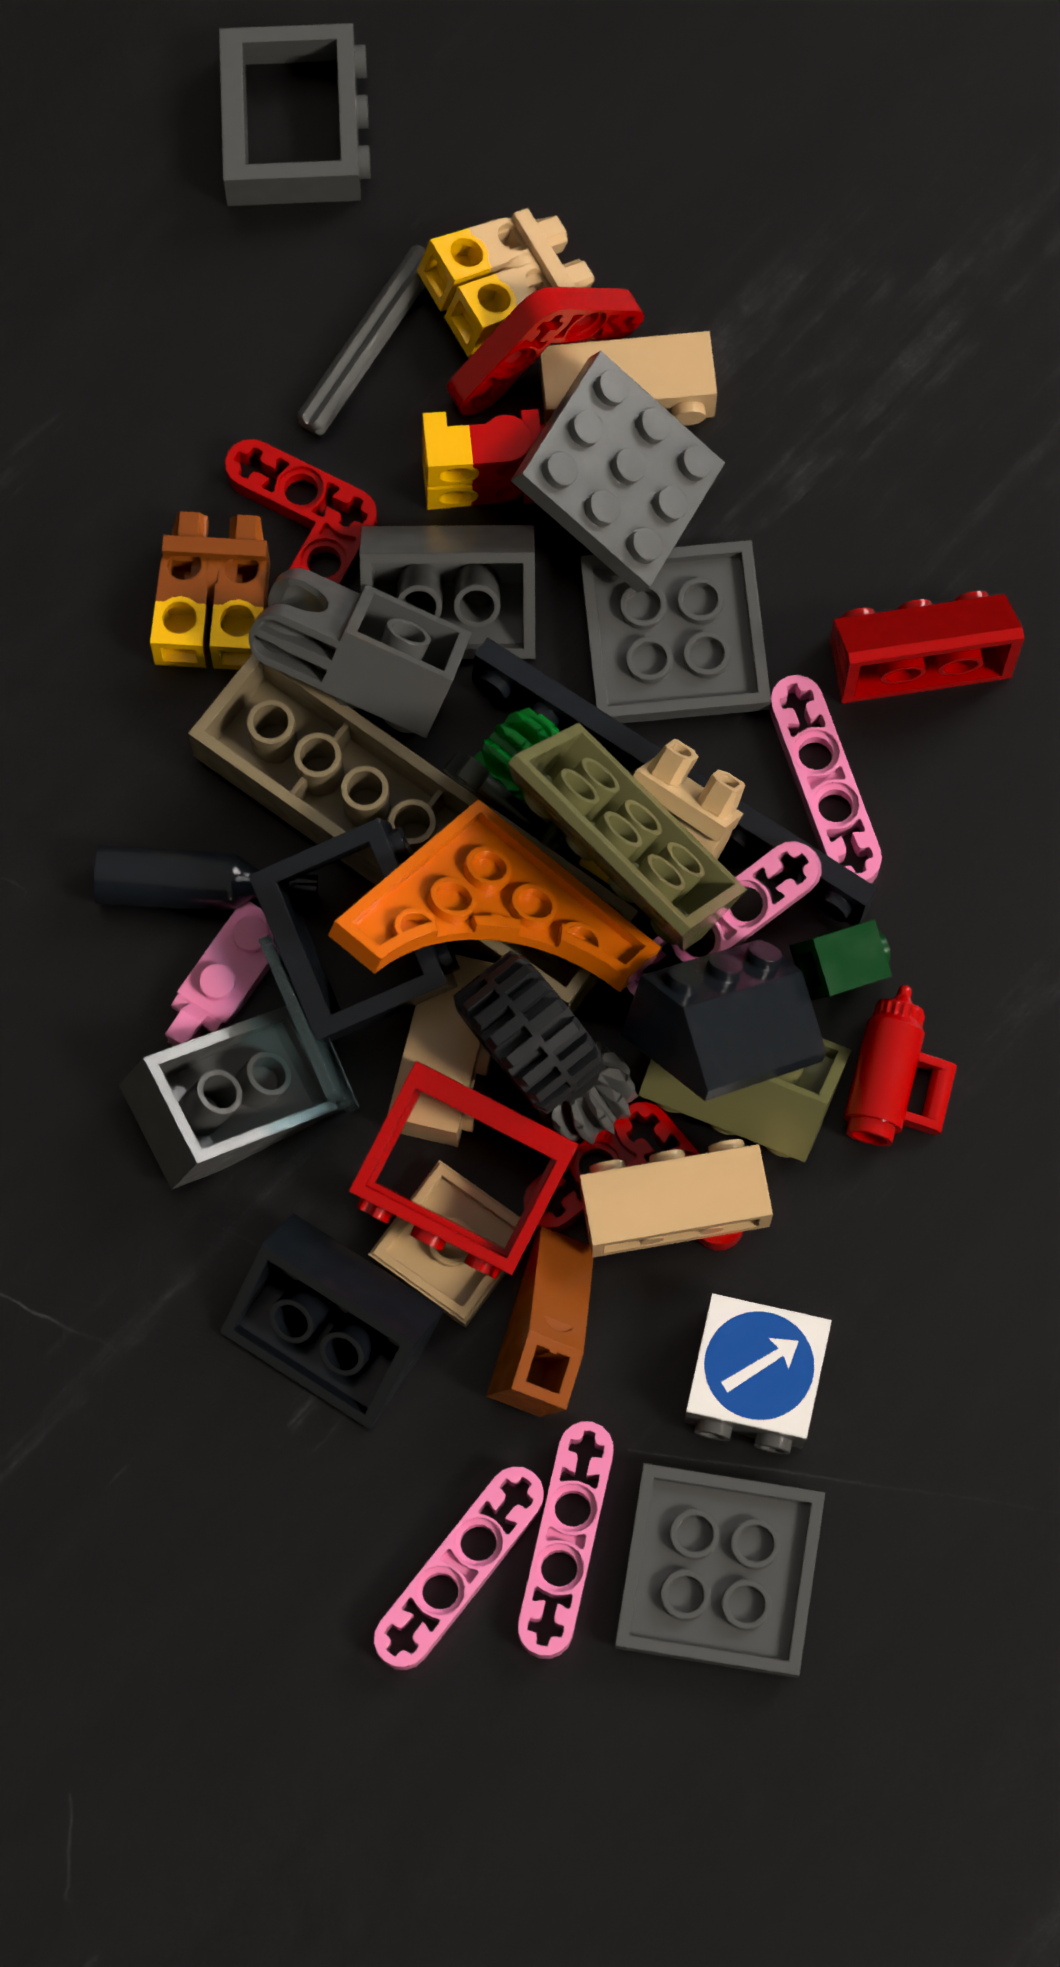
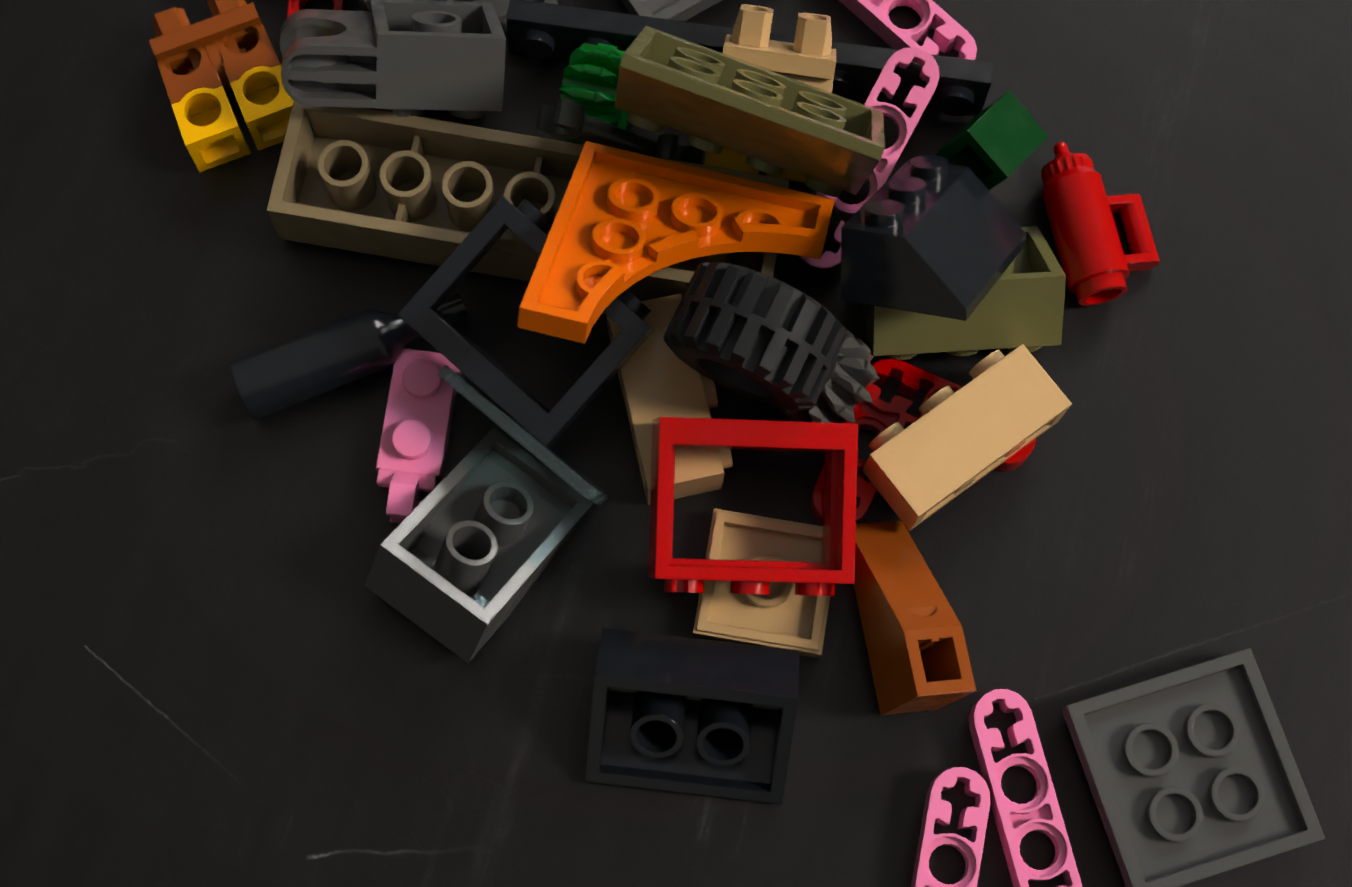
camera: 30 degrees left, 0 degrees up
(757, 1374) = (1125, 565): piece -> none

